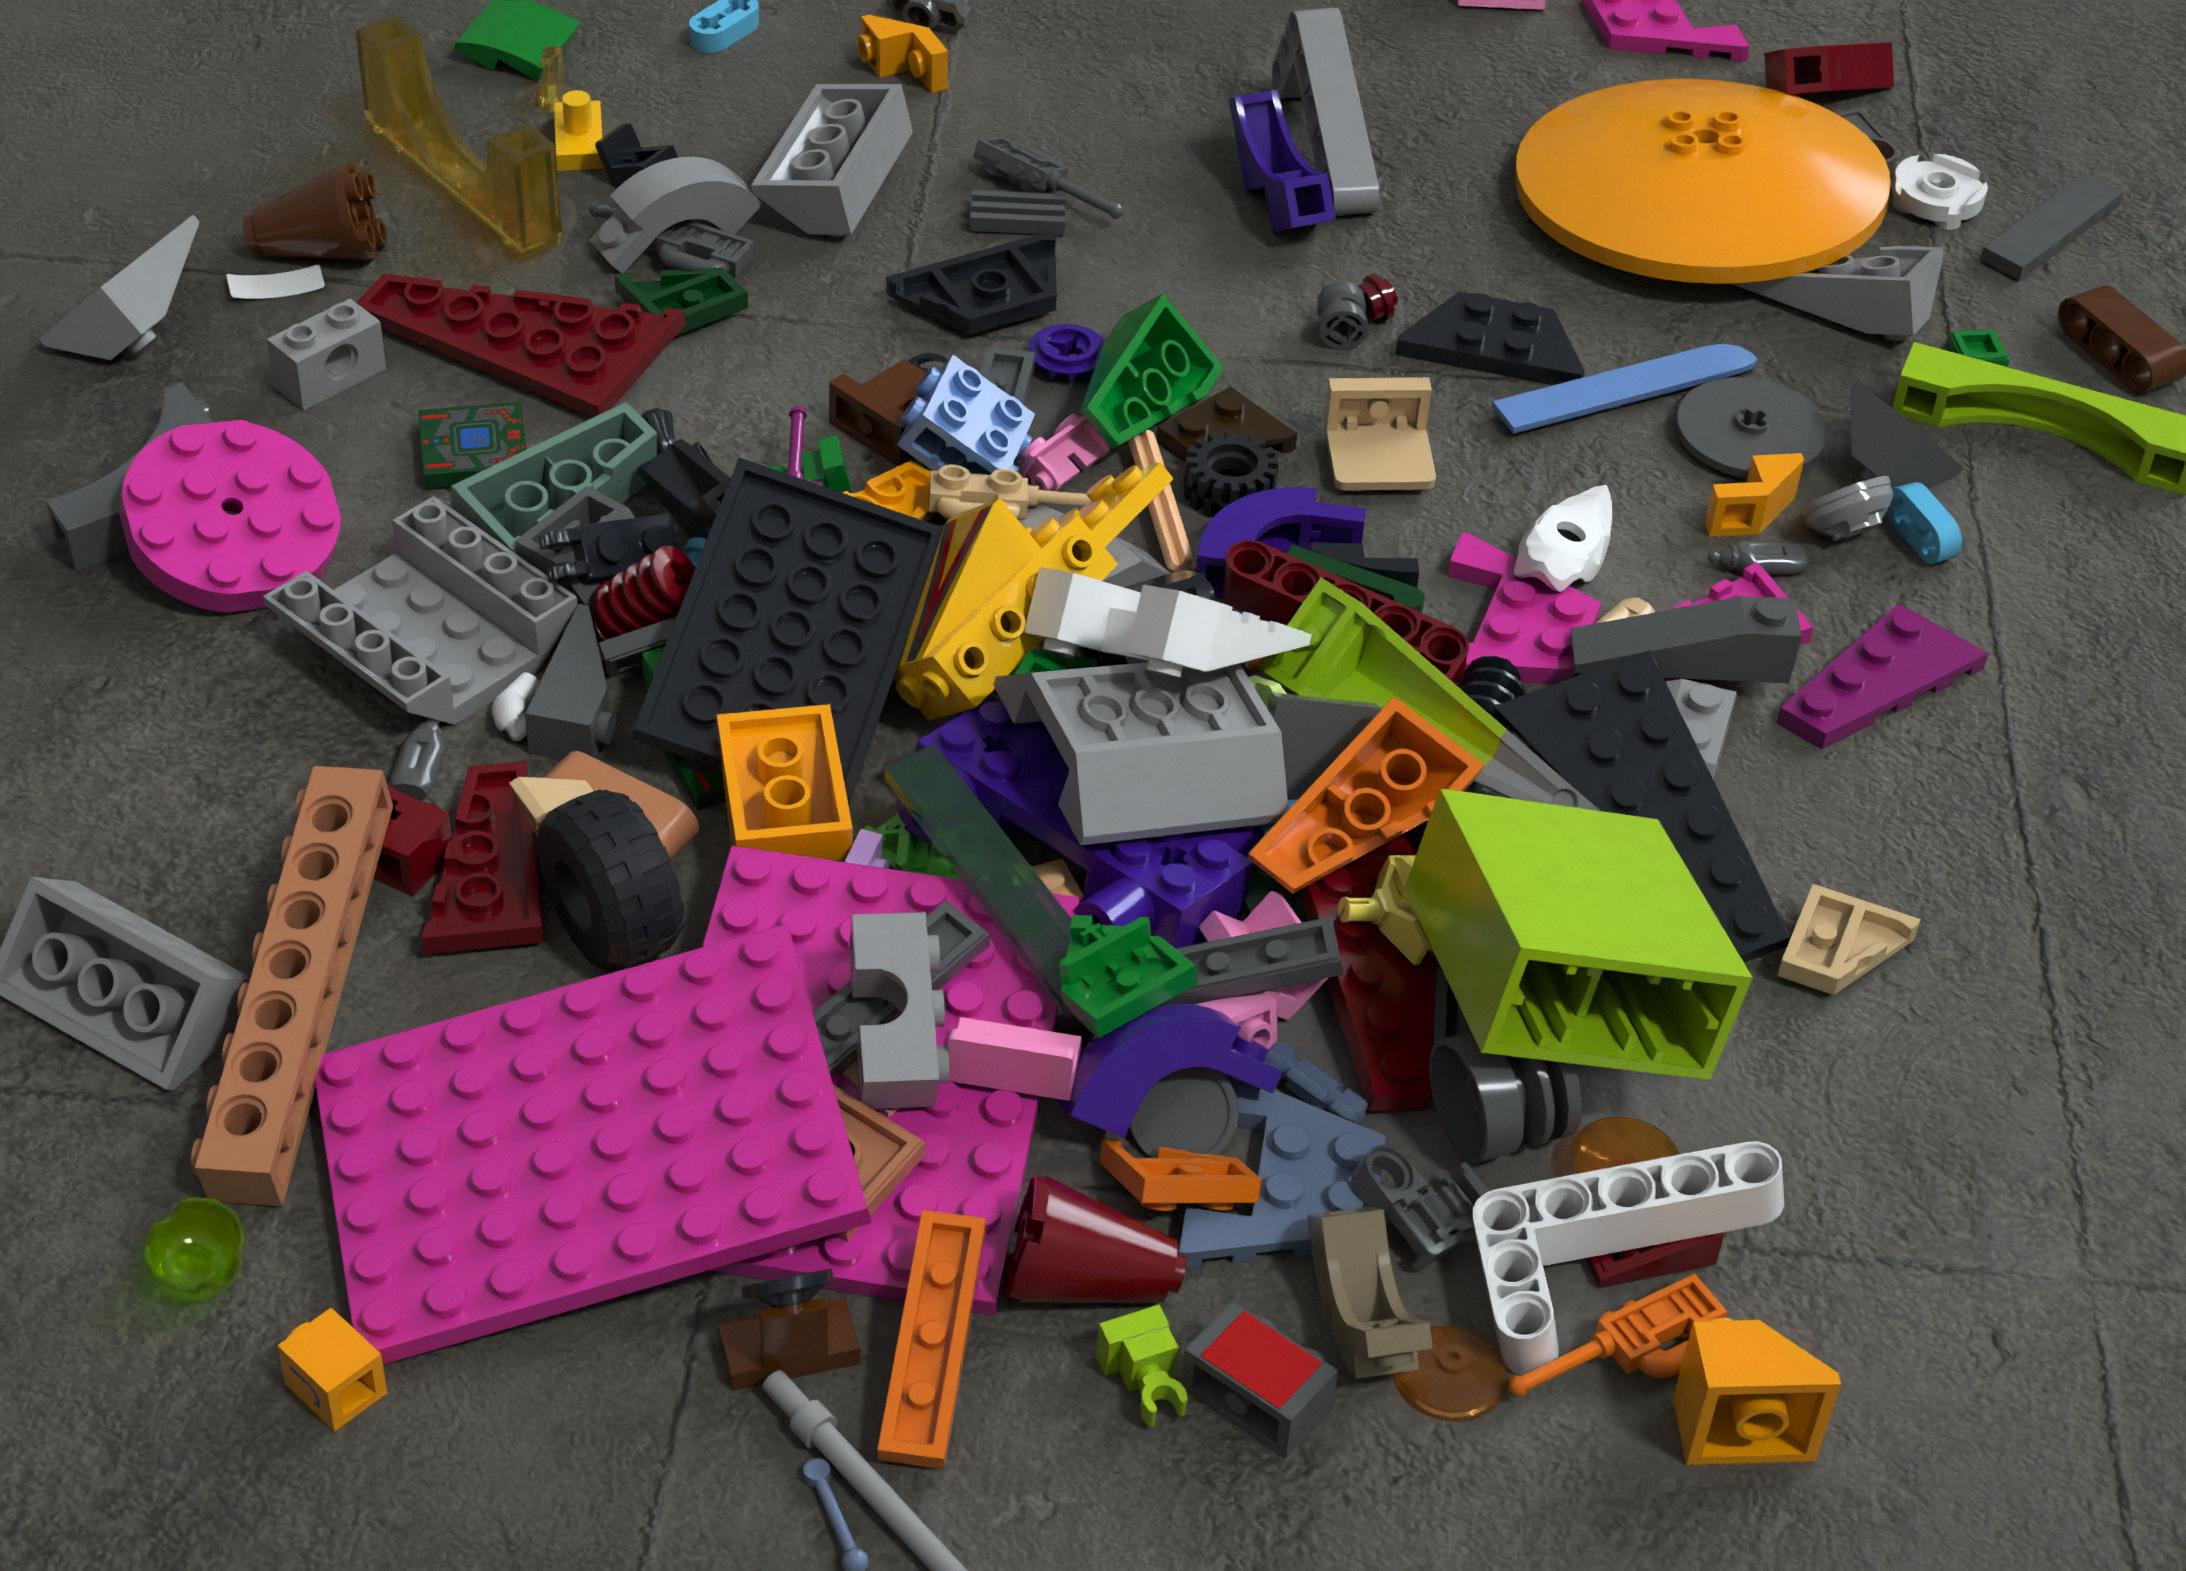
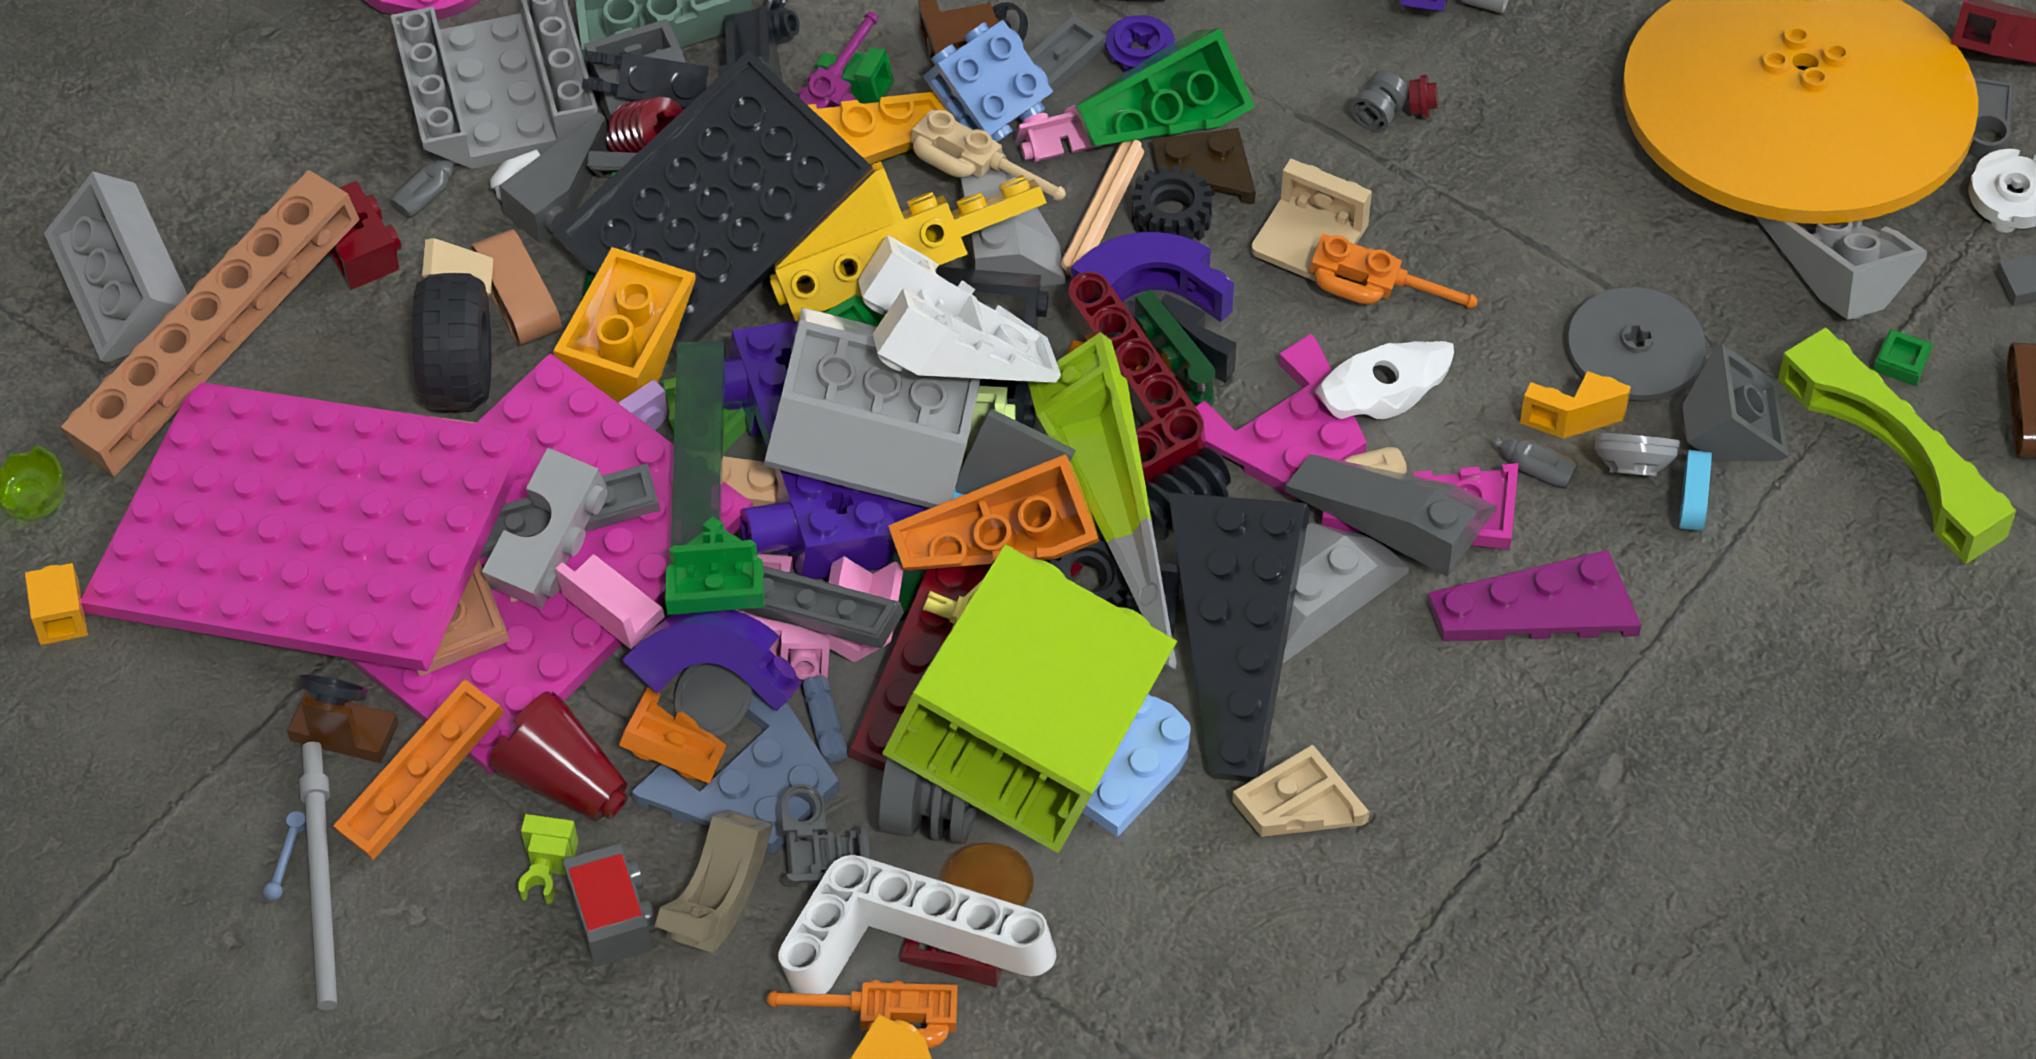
camera: 35 degrees right, 10 degrees up
(489, 869) = (382, 314): dark red wing -> none
(1456, 1378) = (746, 968): clear orange piece -> none
(1468, 460) = (1372, 267): none -> orange piece
(1494, 339) = (1495, 172): black wing -> none
(1622, 386) = (1567, 261): medium blue piece -> none

